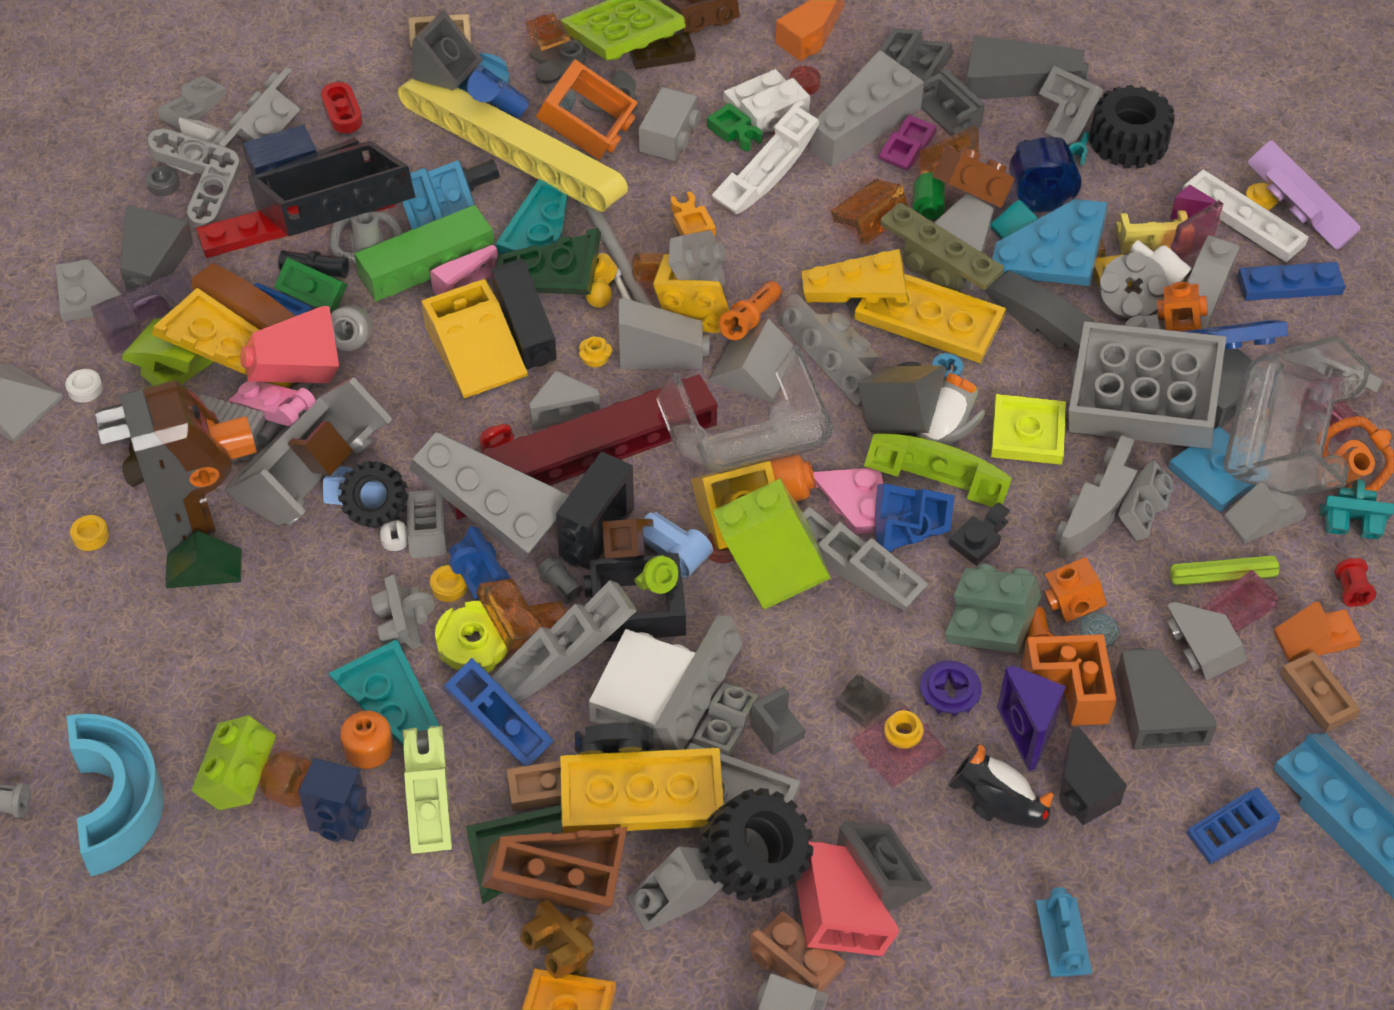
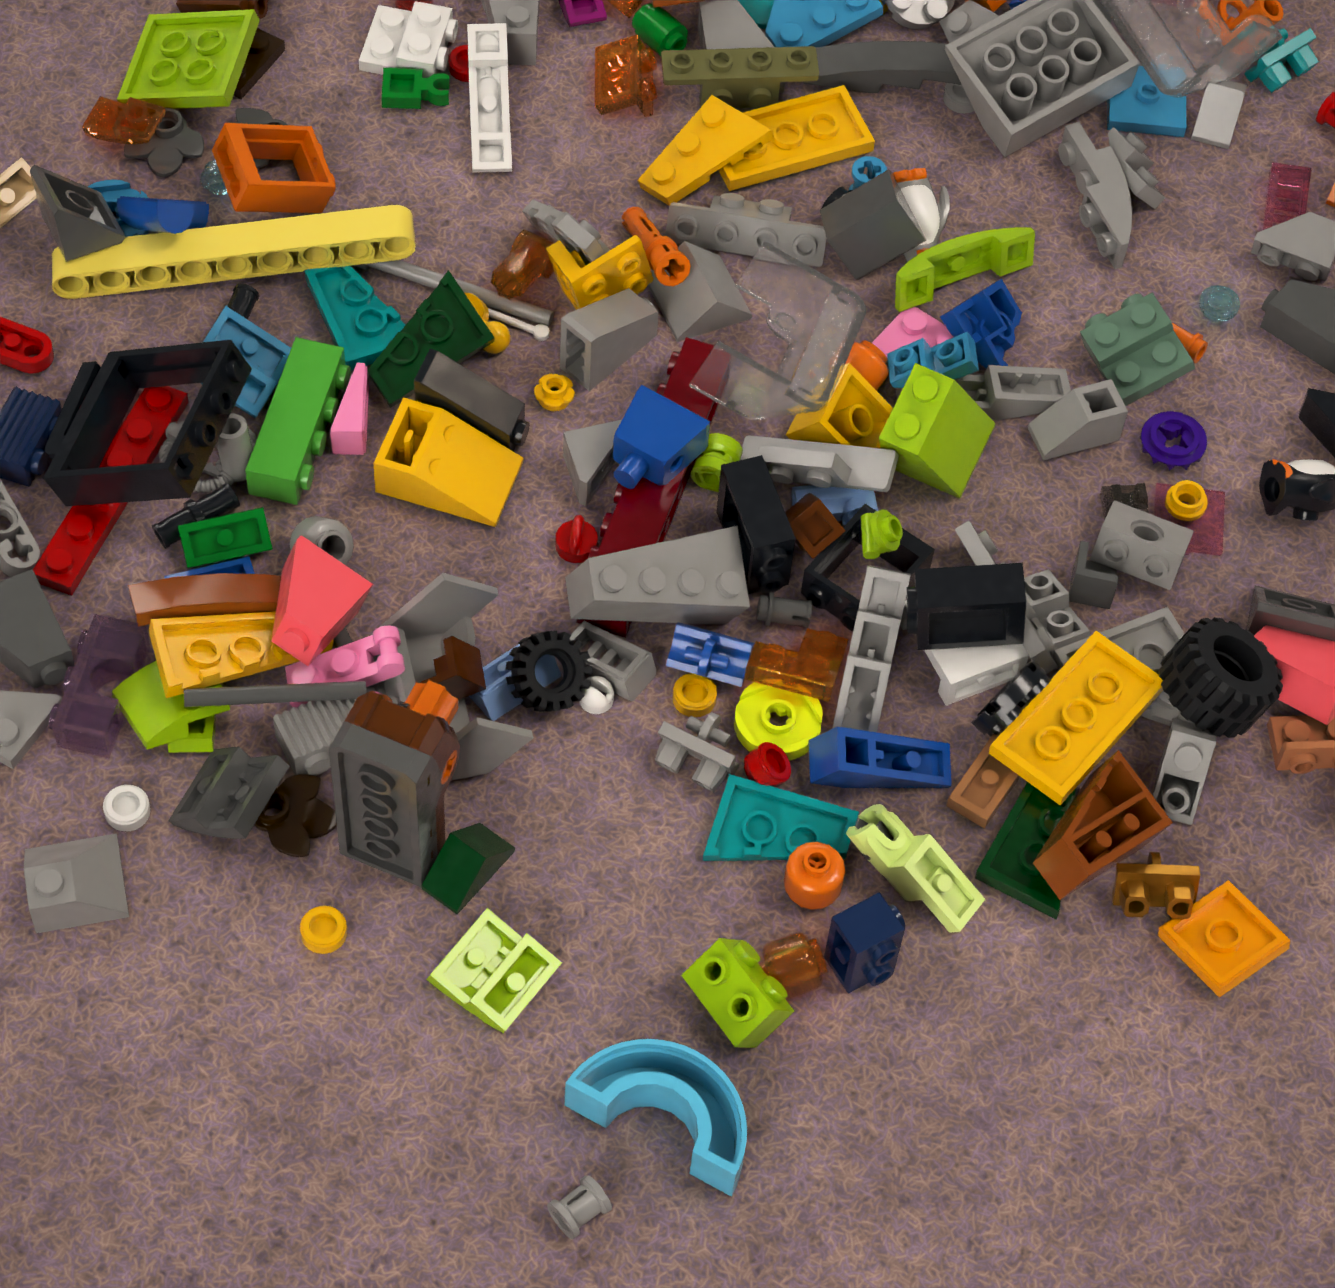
camera: 50 degrees left, 5 degrees up
(139, 633) = (494, 971): none -> slope
(209, 380) = (274, 693): none -> dark grey bar
(425, 654) = (767, 765): none -> red tile
(591, 412) = (657, 439): none -> blue torso
(636, 654) = (967, 606): none -> black window
(638, 456) = (720, 451): none -> lime wheel
(669, 124) = (358, 127): light grey brick -> none
(677, 502) = (824, 463): none -> light grey bracket
(691, 219) = (486, 207): light orange plate -> none
(832, 728) = (1141, 545): none -> light grey brick
(835, 508) = (951, 358): none -> dark azure slope
(893, 621) = (1080, 420): none -> light grey slope
(977, 538) = (1045, 302): black plate -> none
(1028, 429) = (980, 178): neon yellow plate -> none
(1029, 711) = (1268, 408): dark purple slope -> none
(1074, 590) = (1176, 281): orange brick -> none
(1080, 666) = (1255, 345): orange brick -> none
(1222, 570) = (1244, 181): lime axle -> none

